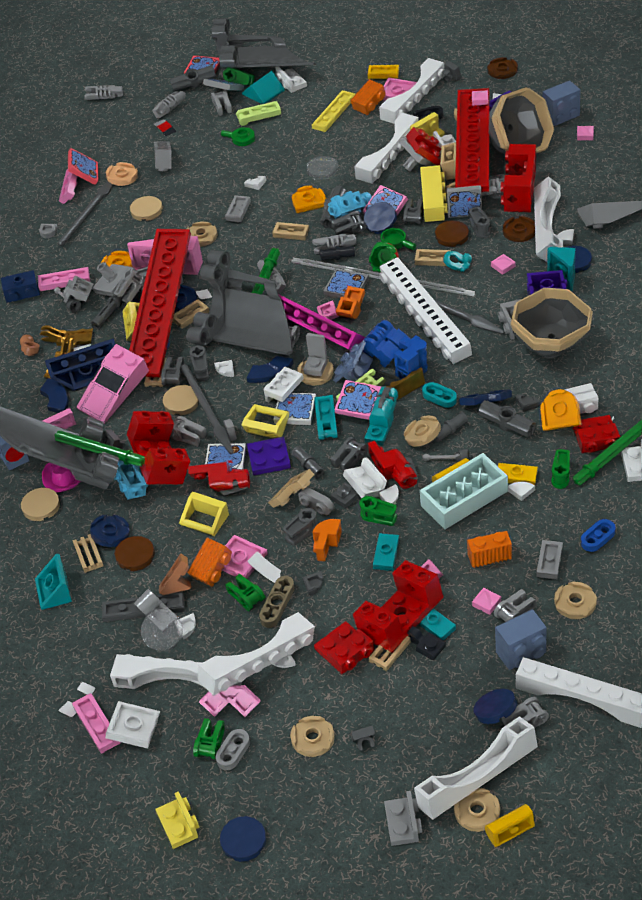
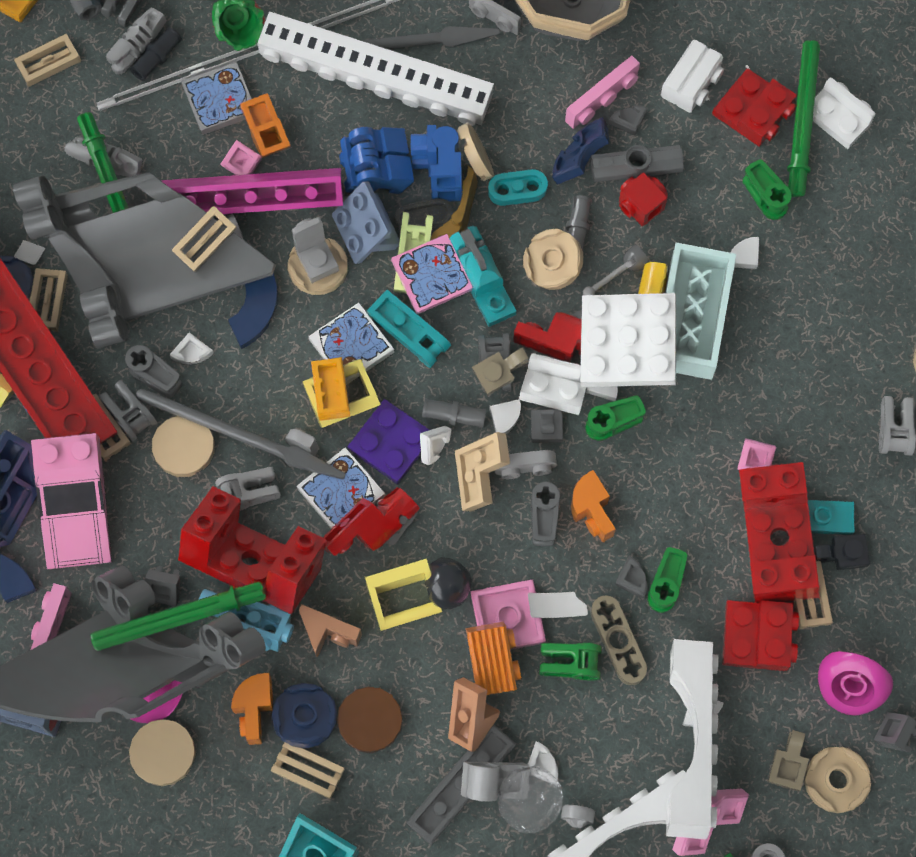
camera: 50 degrees left, 25 degrees up
(93, 507) = (251, 698): none -> orange brick
(154, 503) = (320, 625): none -> nougat slope
(175, 652) = (577, 815): none -> light grey tile
(225, 521) = (448, 583): none -> black hair
(260, 410) = (330, 389): none -> light orange plate
(273, 326) = (195, 230): none -> tan tile
(282, 384) = (308, 321): white bracket -> none
(285, 467) = (433, 443): none -> white tile
(295, 709) = (788, 766): none -> dark tan plate
(327, 590) = (667, 578): none -> green piece
(330, 479) = (505, 415): none -> white tile
(343, 452) = (496, 373): none -> dark tan plate
(364, 696) = (853, 683): none -> dark pink hat
(386, 552) = (675, 465): teal plate -> none
(414, 476) = (628, 340): none -> white plate
(432, 364) = (475, 152): none -> tan tile
(486, 601) = (852, 440): bright pink tile -> none
(489, 549) = (796, 368): orange brick -> none
(494, 434) = (642, 198): none -> red brick
(519, 473) = (721, 232): yellow plate -> none
(523, 381) = (603, 93): none -> bright pink plate
(549, 559) = (871, 328): light grey plate -> none
(560, 410) = (696, 107): light orange tile -> none
(594, 537) = (893, 255): blue plate -> none

